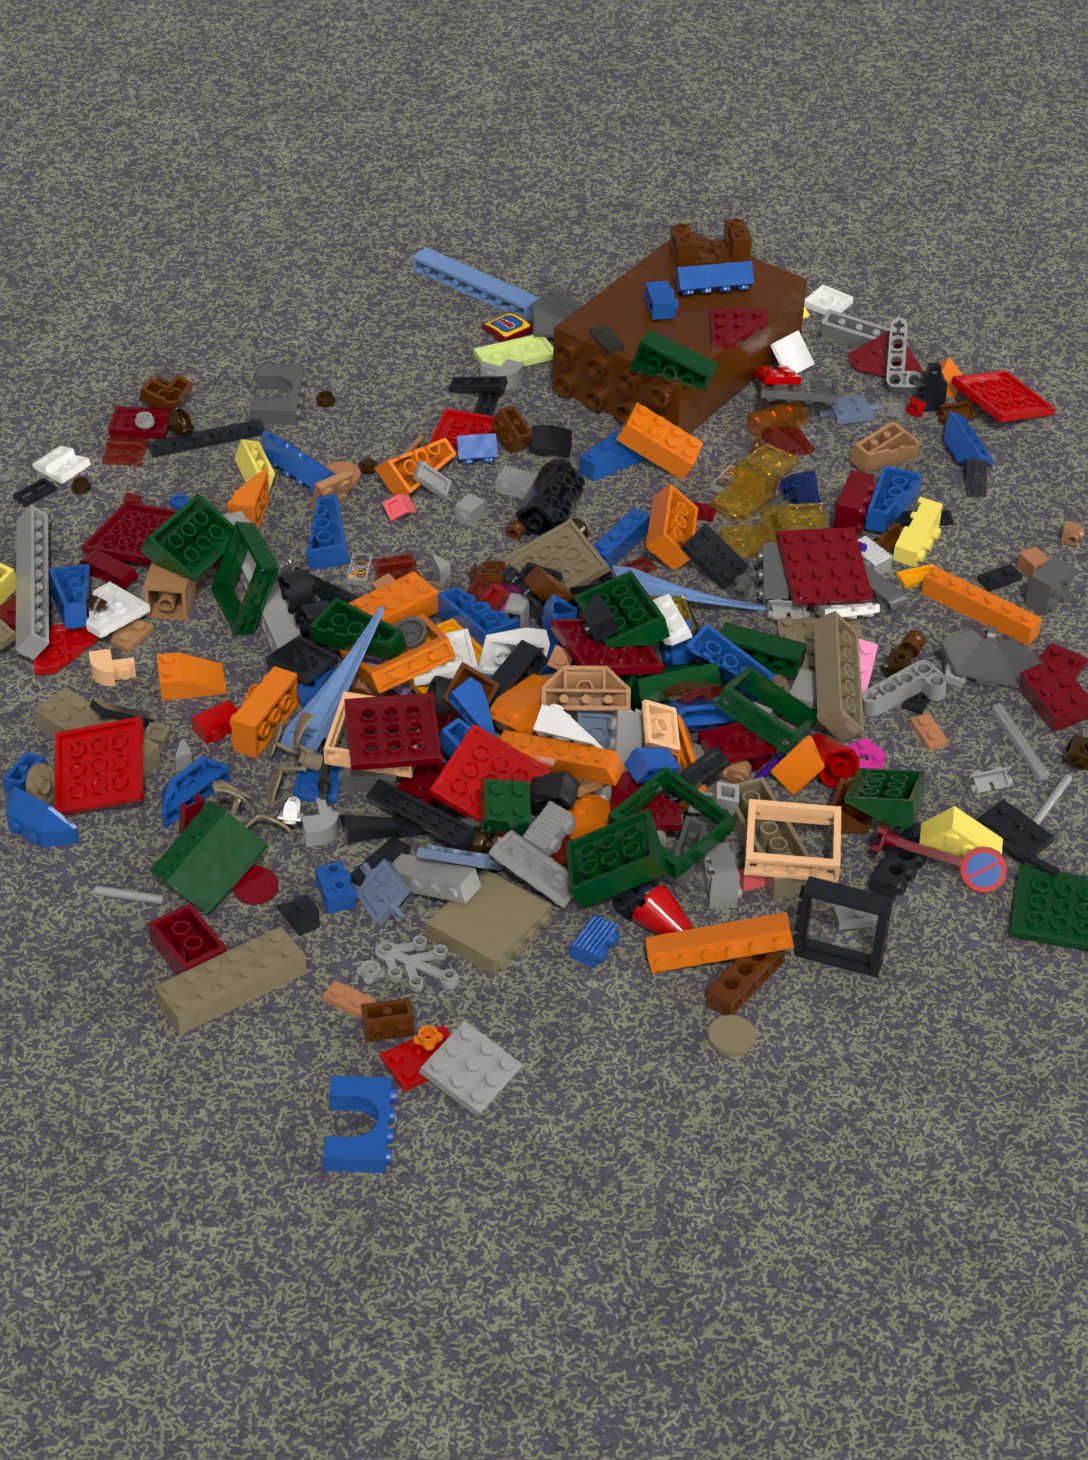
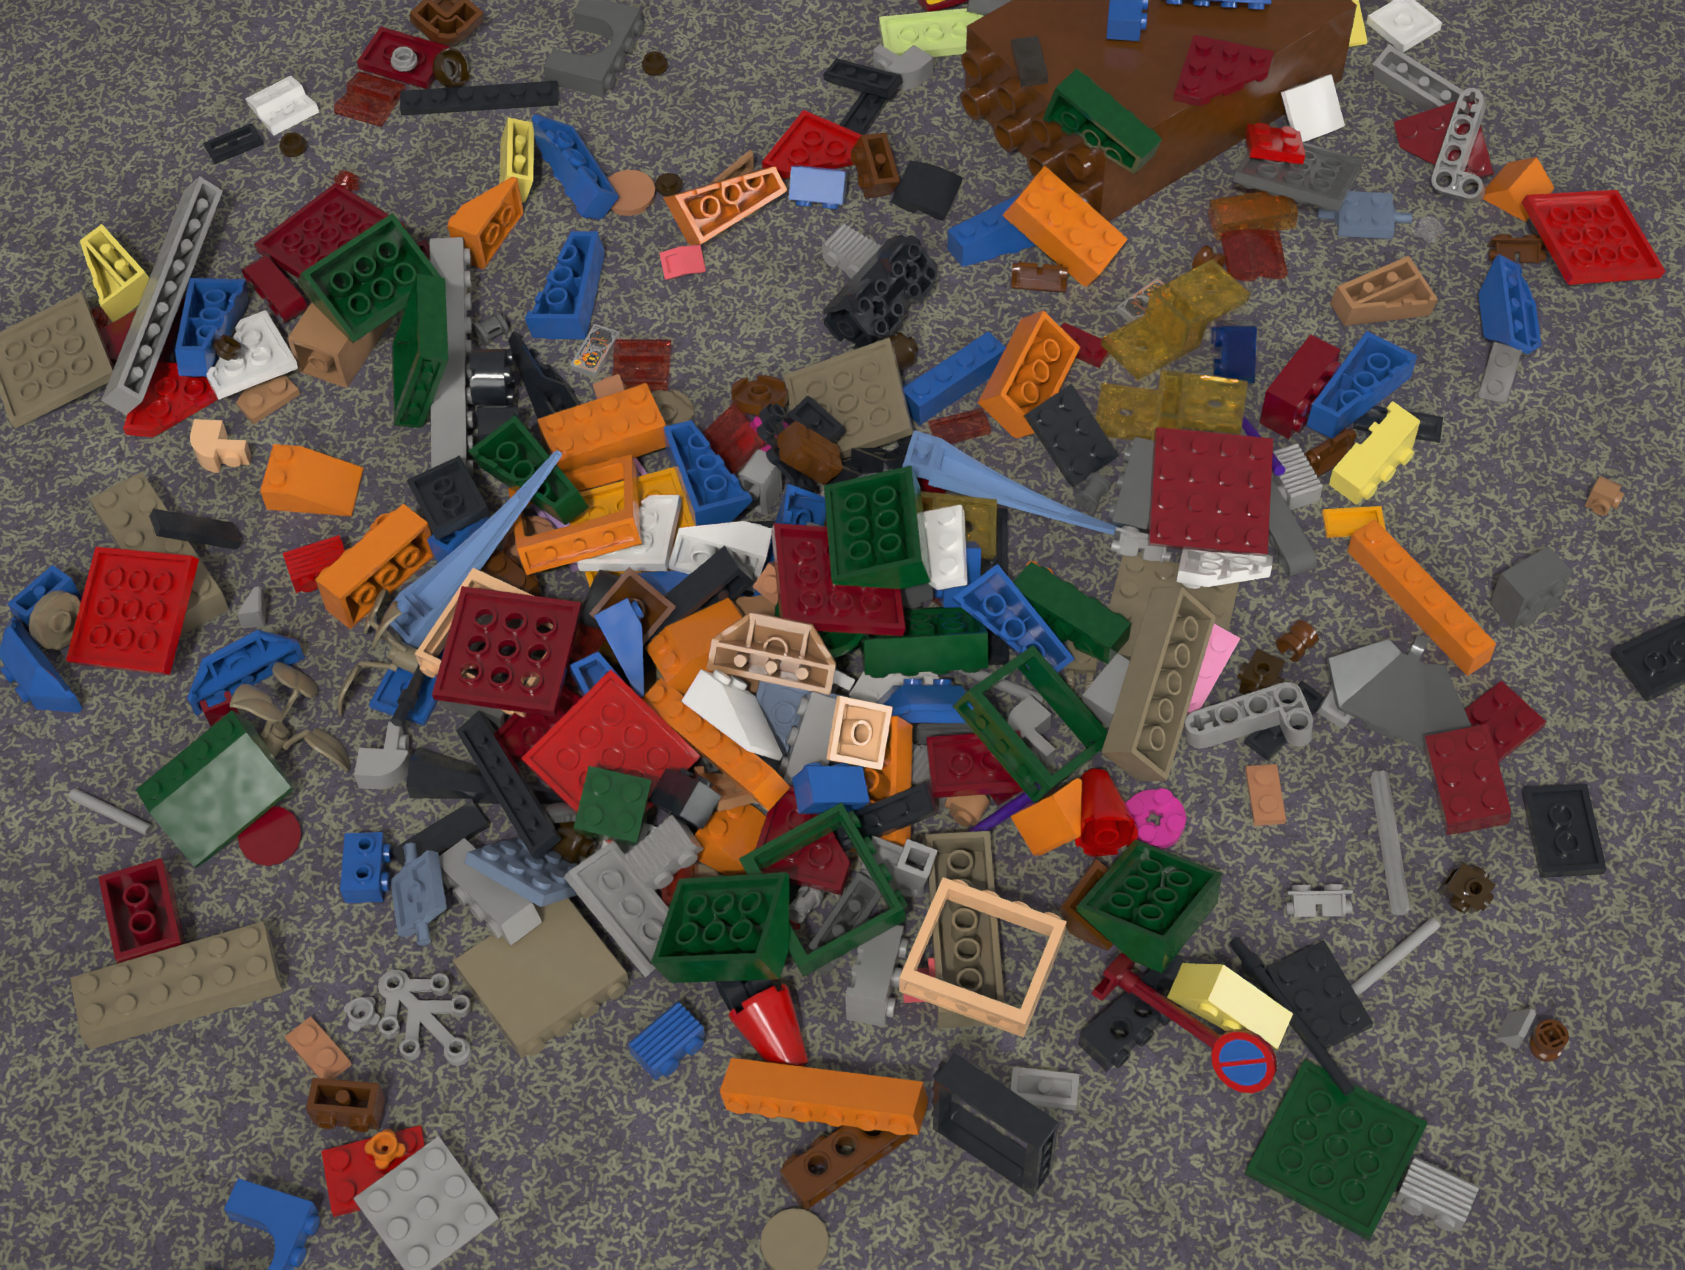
camera: 20 degrees right, 15 degrees up
(158, 733) = (236, 565): dark tan plate -> none
(178, 501) = (406, 195): blue tile -> none
(291, 811) = (352, 735): white hinge -> none
(300, 914) = (304, 898): black slope -> none
(336, 484) = (605, 218): medium nougat plate -> none
(413, 630) = (601, 485): dark grey hat -> none
(432, 479) = (738, 227): light grey tile -> none
(441, 569) = (698, 376): light grey slope -> none
(469, 510) = (772, 285): light grey brick -> none
(515, 530) = (821, 331): reddish brown bush -> none
(598, 620) = (832, 541): black slope -> none
(642, 477) = (1044, 278): none -> reddish brown hinge
(689, 690) = (935, 672): clear red slope -> none
(916, 407) = (1459, 230): red plate -> none
(932, 387) = (1489, 208): black hinge -> none
(999, 577) = (1470, 549): black plate -> none
(1031, 560) = (1526, 535): nougat brick -> none

